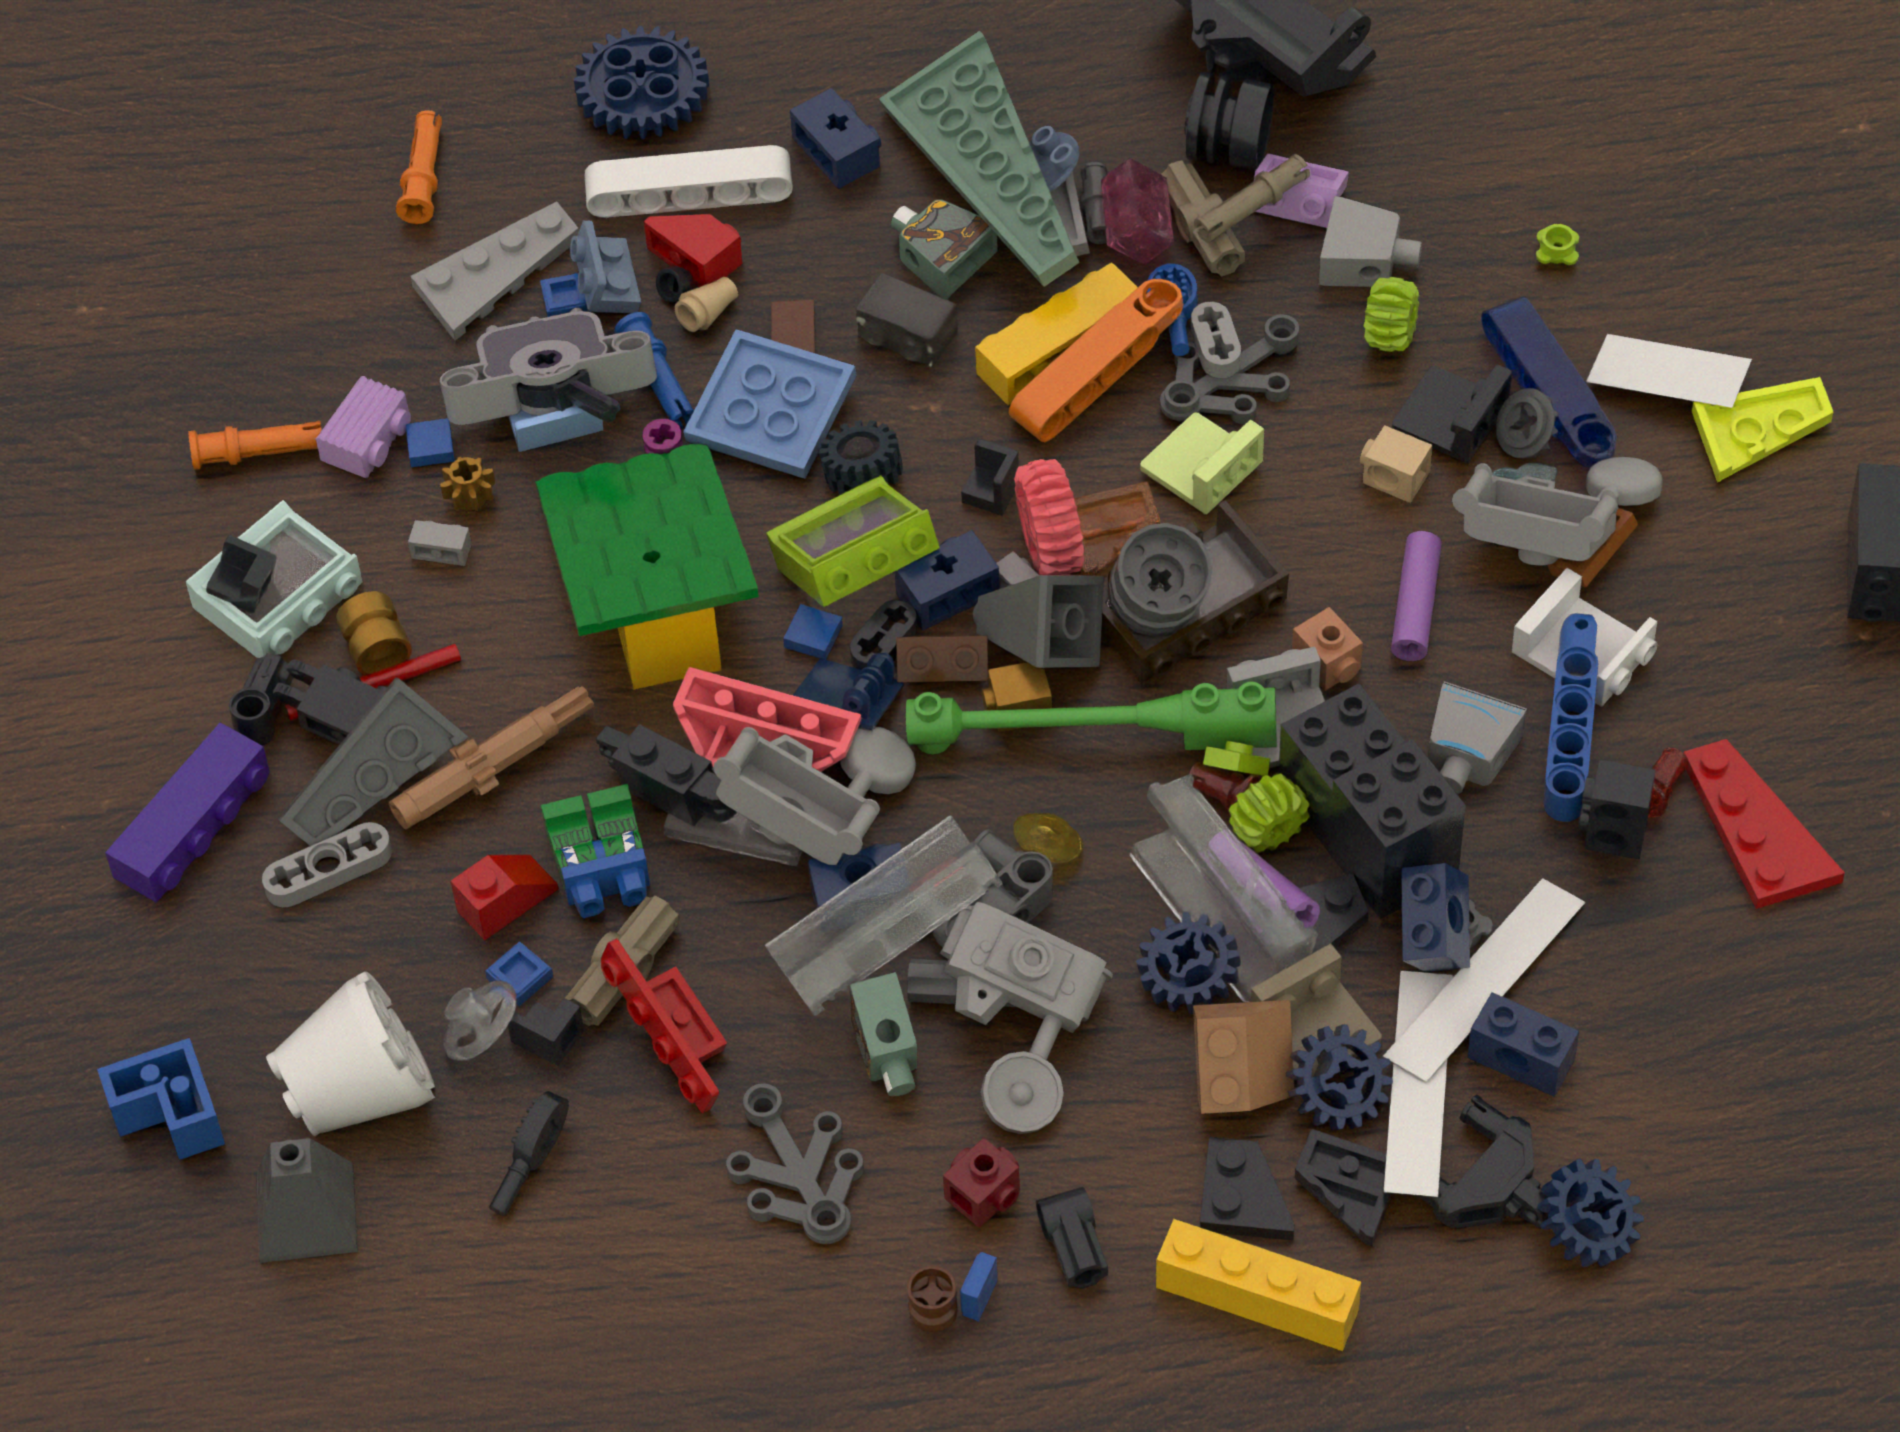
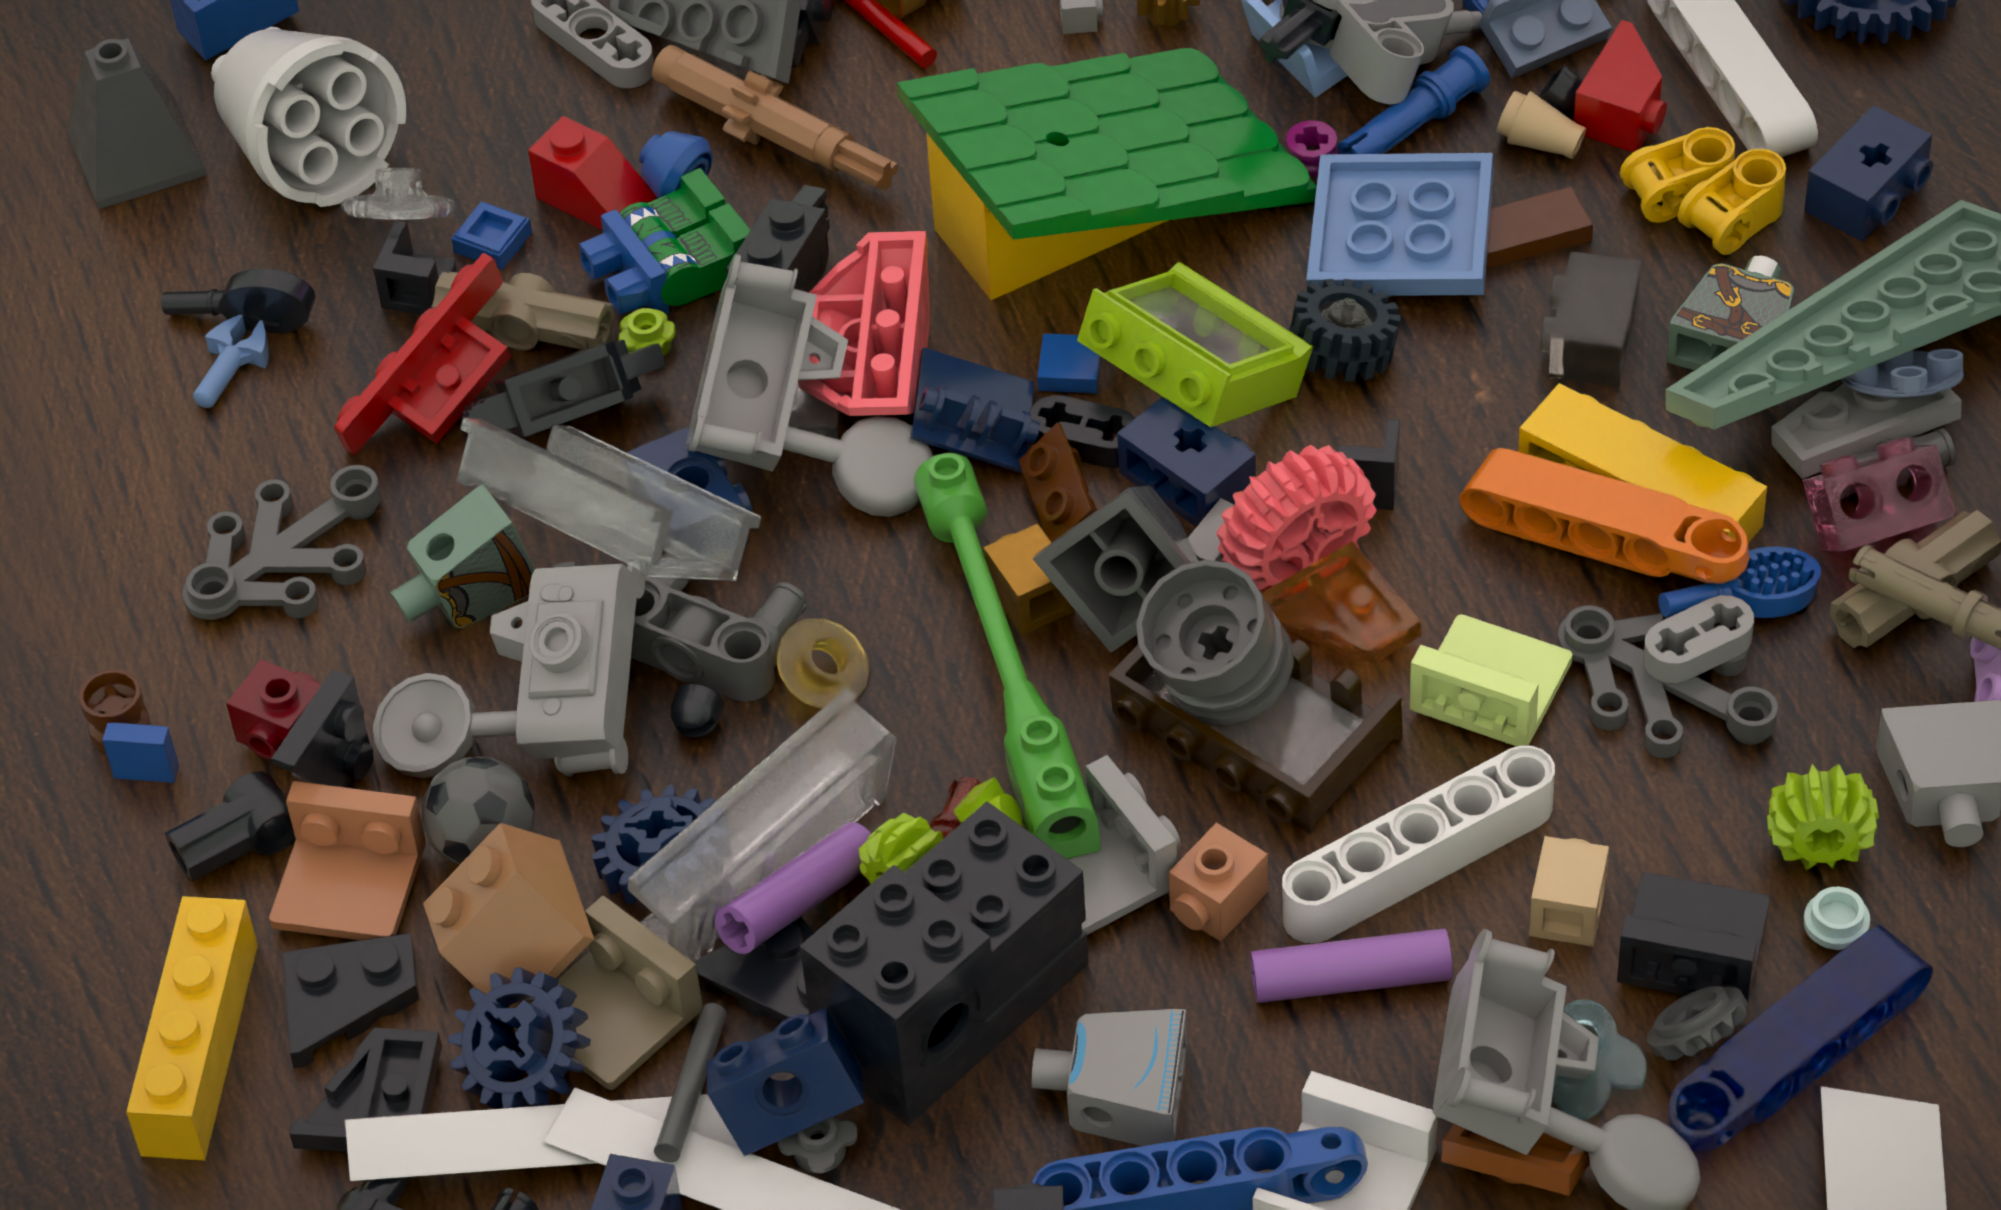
camera: 75 degrees right, 5 degrees down
(518, 827) = (672, 156): none -> blue cone
(577, 1174) = (232, 353): none -> medium blue bar
(678, 896) = (646, 328): none -> lime plate
(727, 944) = (566, 387): none -> black hinge
(791, 236) = (1676, 169): none -> yellow piece
(830, 212) = (1737, 200): none -> yellow piece
(1038, 1143) = (329, 737): none -> black wing
(1065, 923) = (696, 710): none -> black hinge
(1128, 1065) = (470, 802): none -> dark grey piece
(1139, 1166) = (348, 862): none -> nougat bracket
(1332, 533) = (1417, 844): none -> white beam
(1403, 987) = (690, 1083): none -> dark grey bar
(1458, 338) = (1836, 918): none -> light aqua plate

